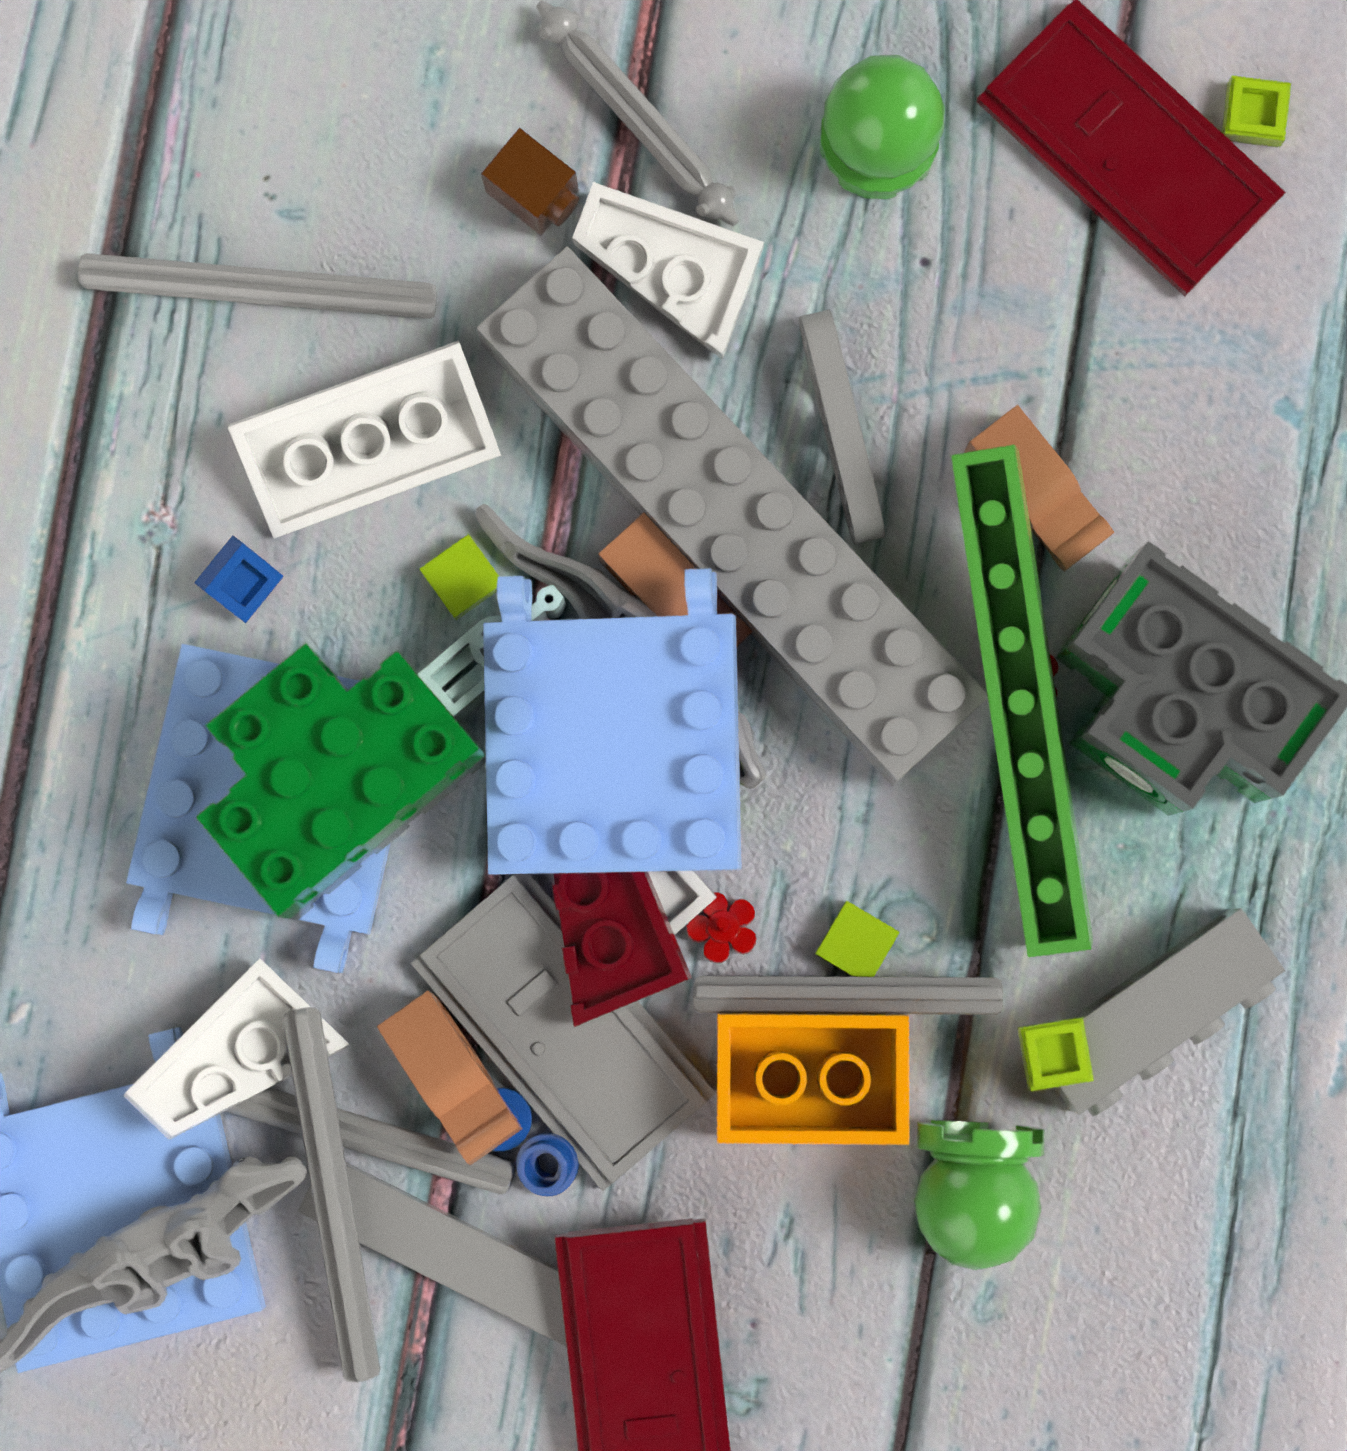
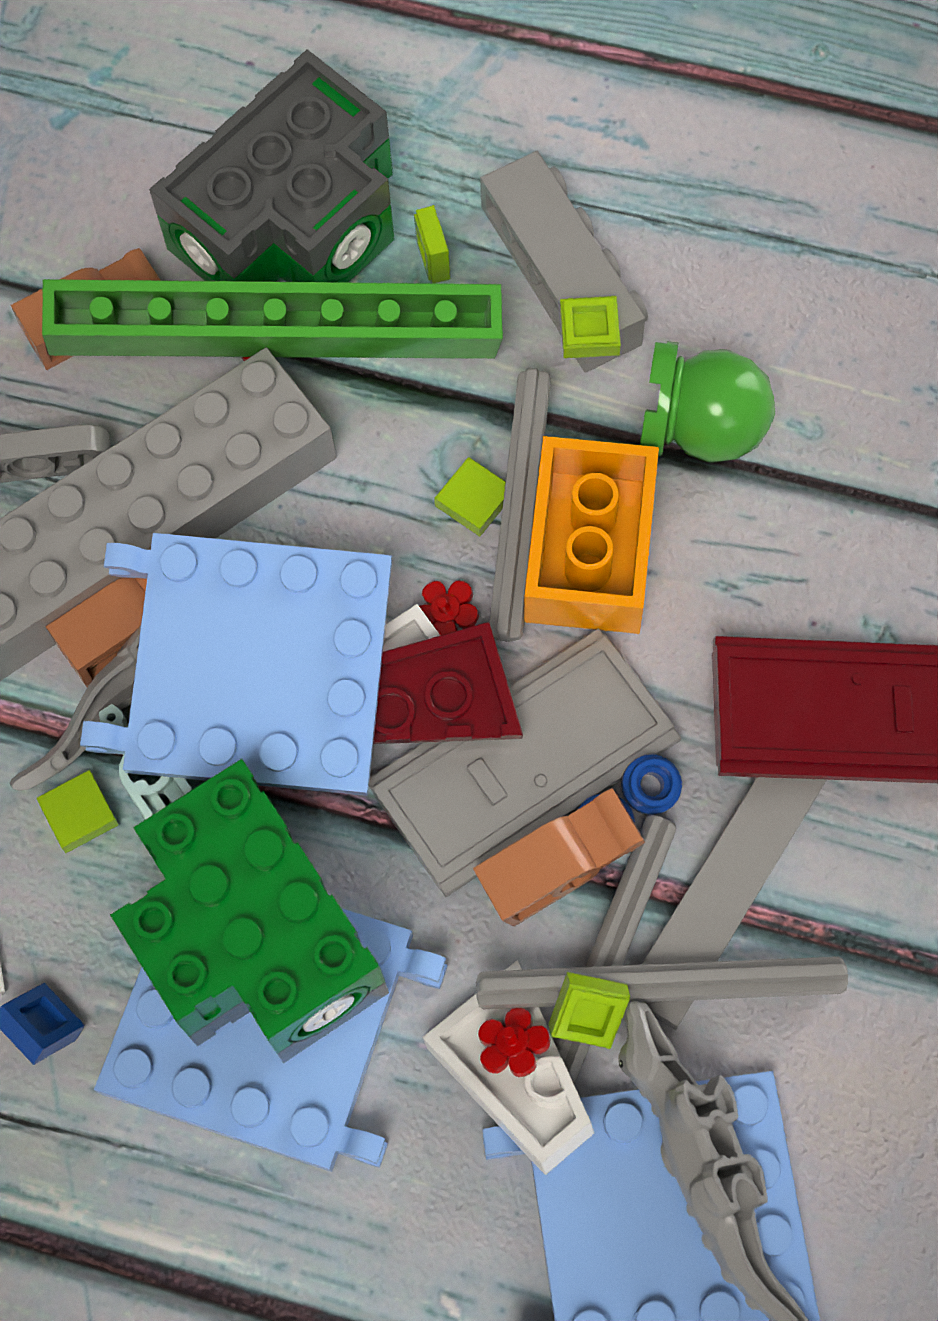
camera: 85 degrees left, 15 degrees down
(251, 1050) = (512, 1043): none -> red plant
(289, 1123) = (589, 1010): none -> lime tile
(1159, 860) = (432, 244): none -> lime tile

